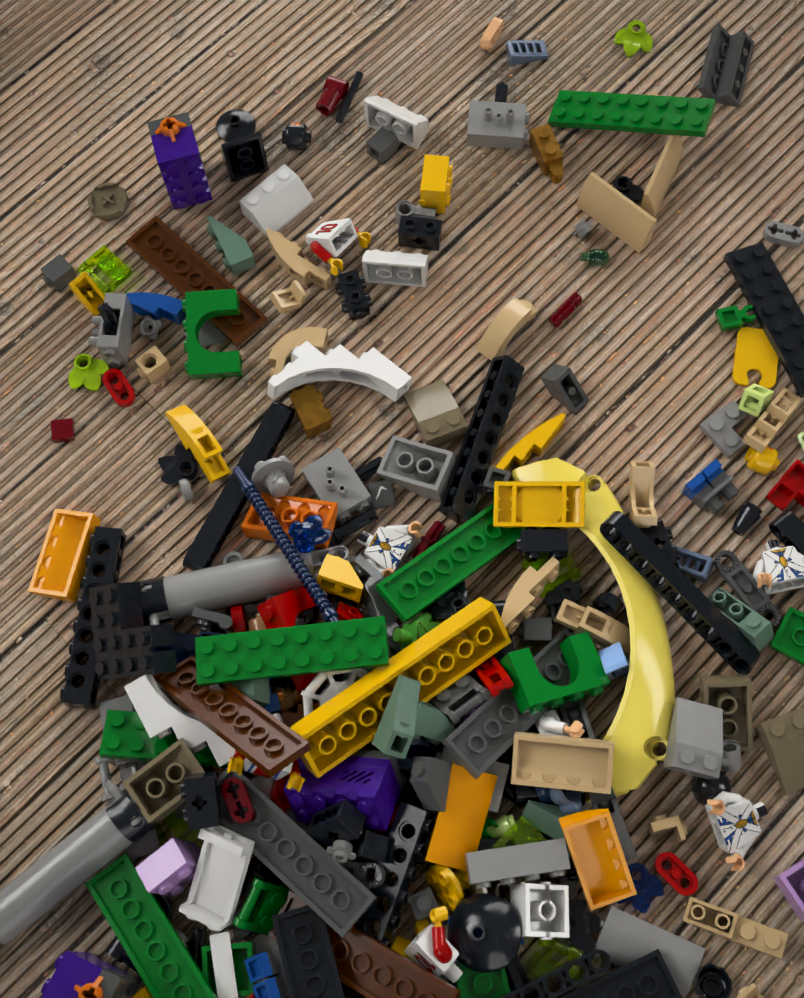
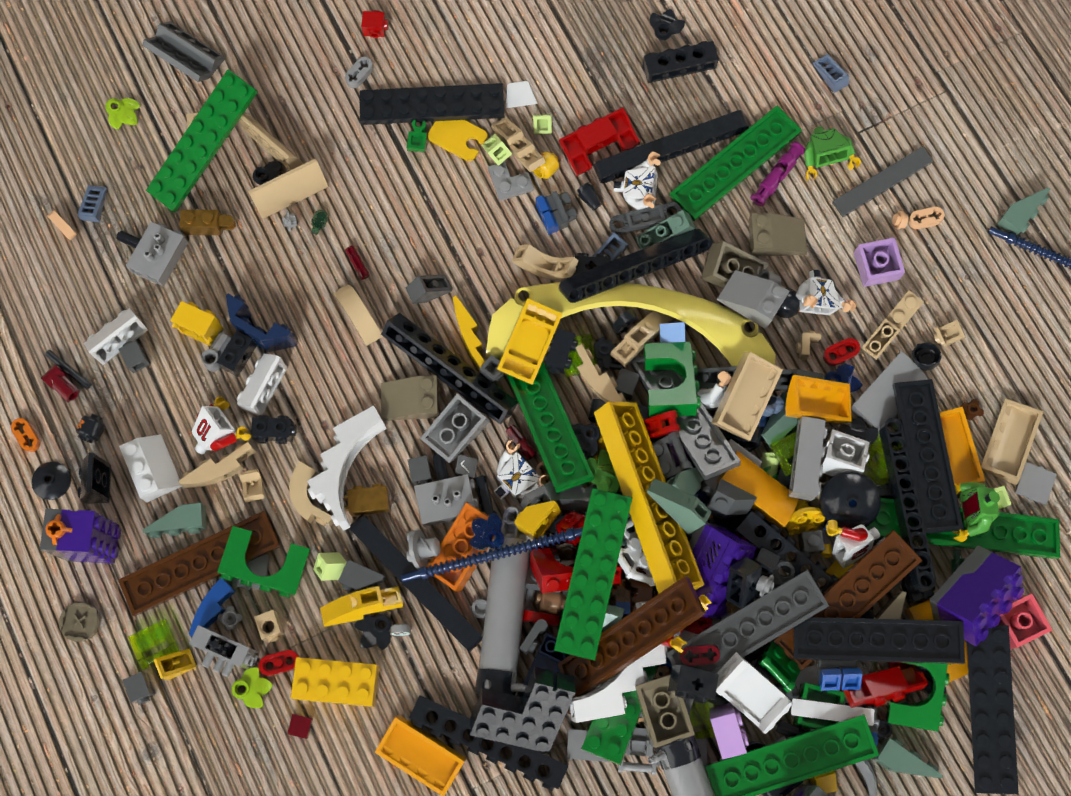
camera: 75 degrees left, 5 degrees up
(113, 446) = (335, 682): none -> yellow brick
(227, 429) = (359, 577): none -> dark grey slope
(230, 399) = (329, 566): none -> yellowish green panel
(274, 88) = (29, 432): none -> orange beam
(359, 449) = (420, 470): none -> dark grey brick
(456, 218) = (277, 337): none -> dark blue slope

